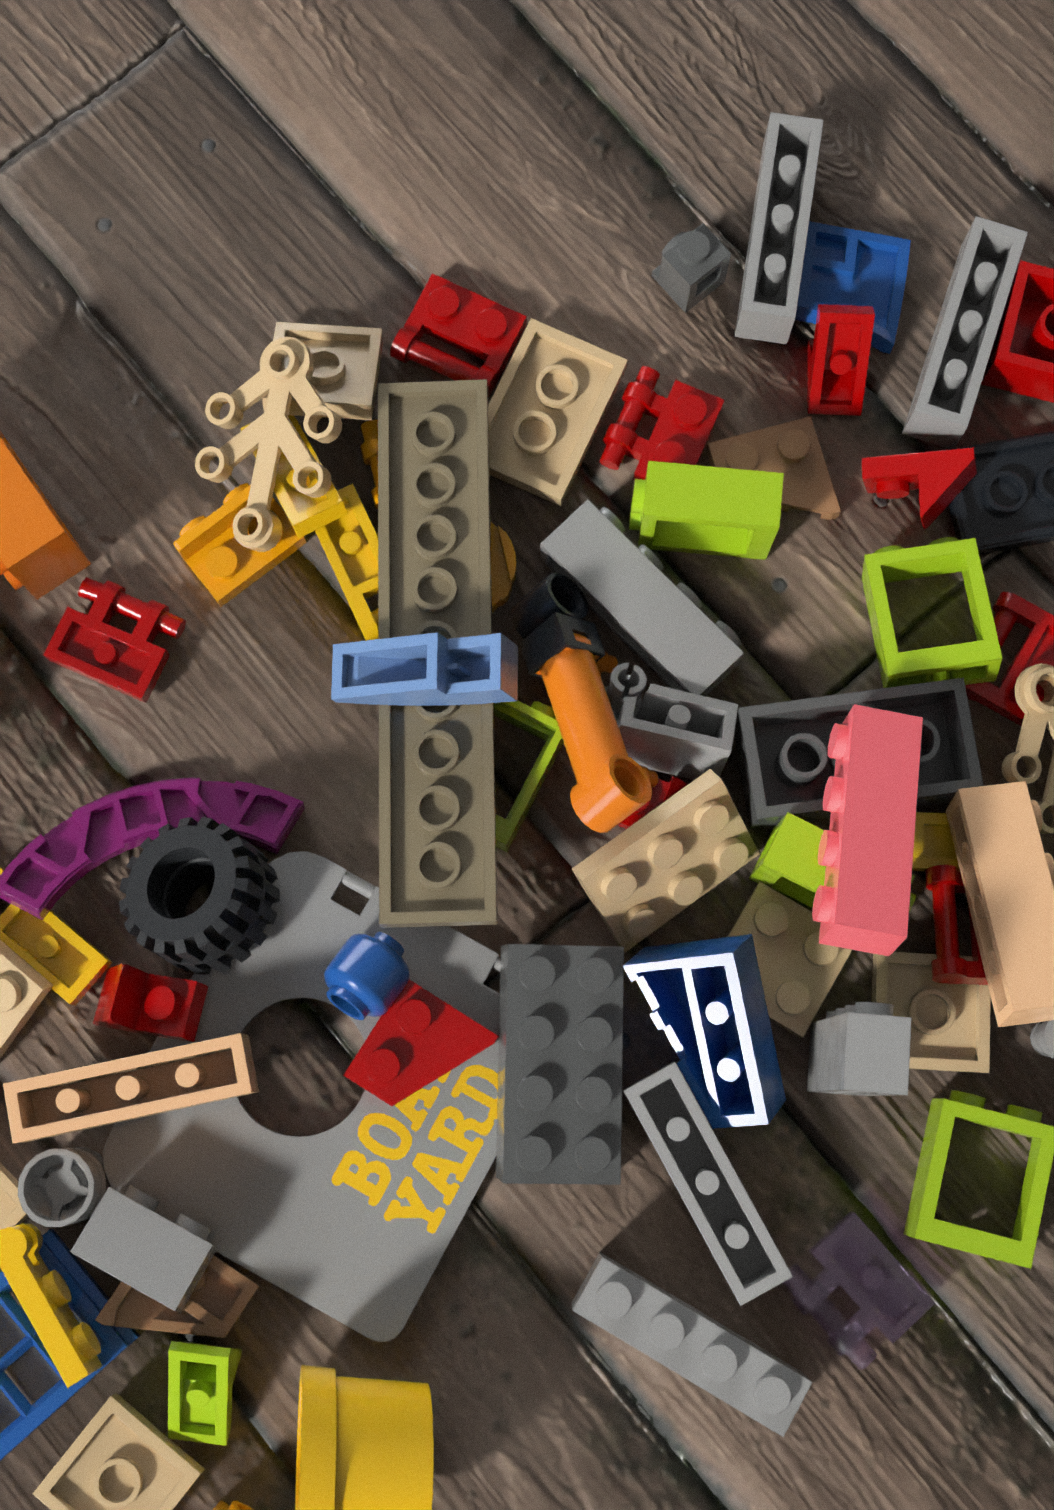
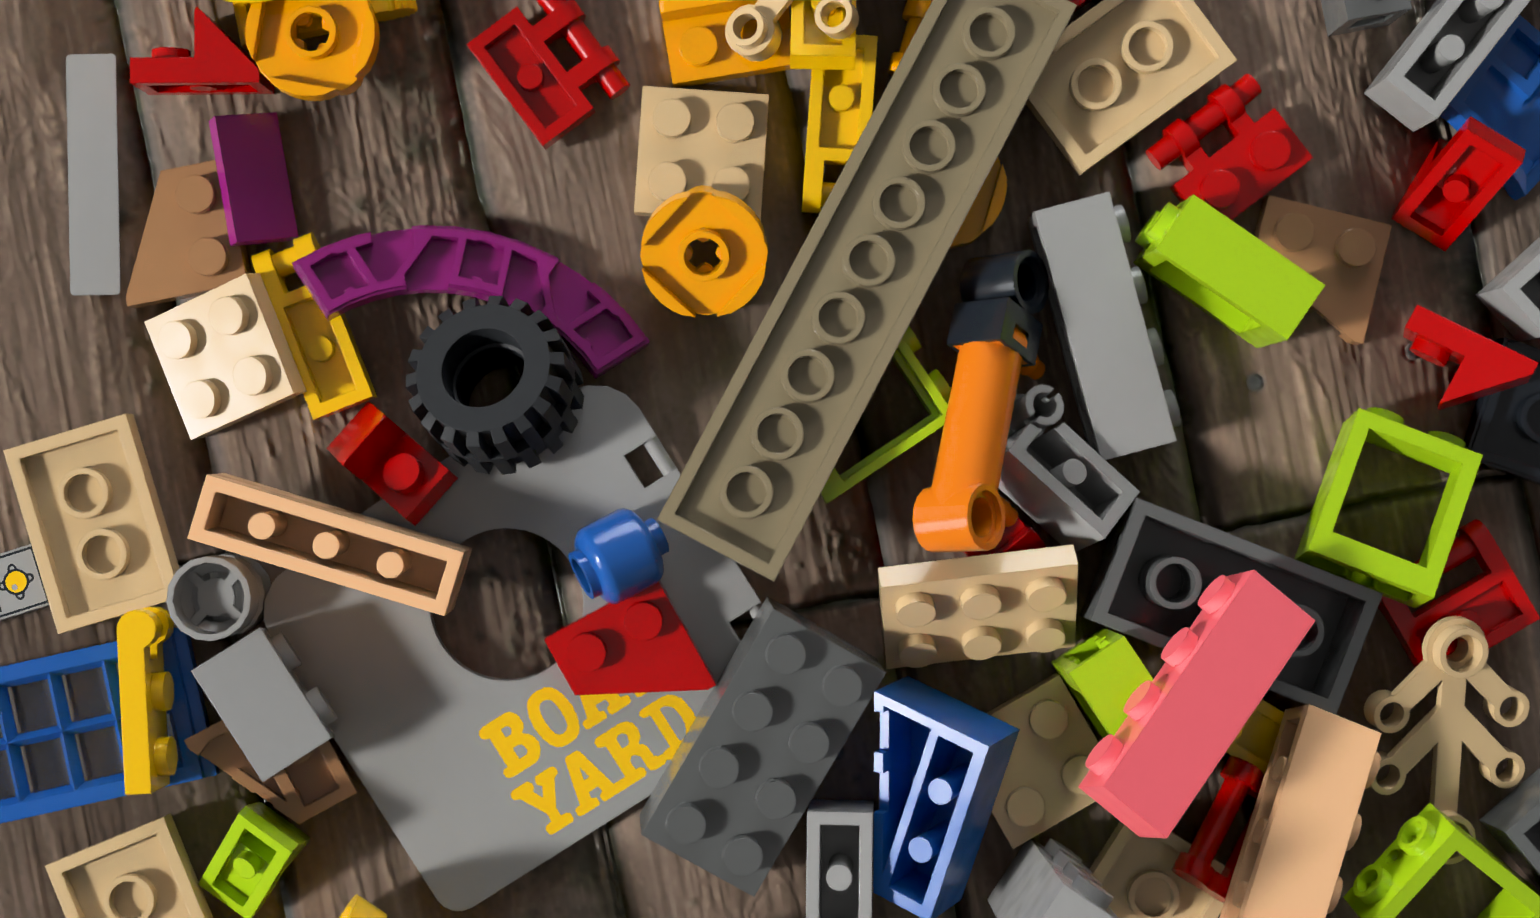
camera: 25 degrees right, 10 degrees up
(267, 642) = (700, 140): none -> tan plate
(281, 727) = (704, 289): none -> light orange plate
(426, 670) = (842, 289): medium blue slope -> none

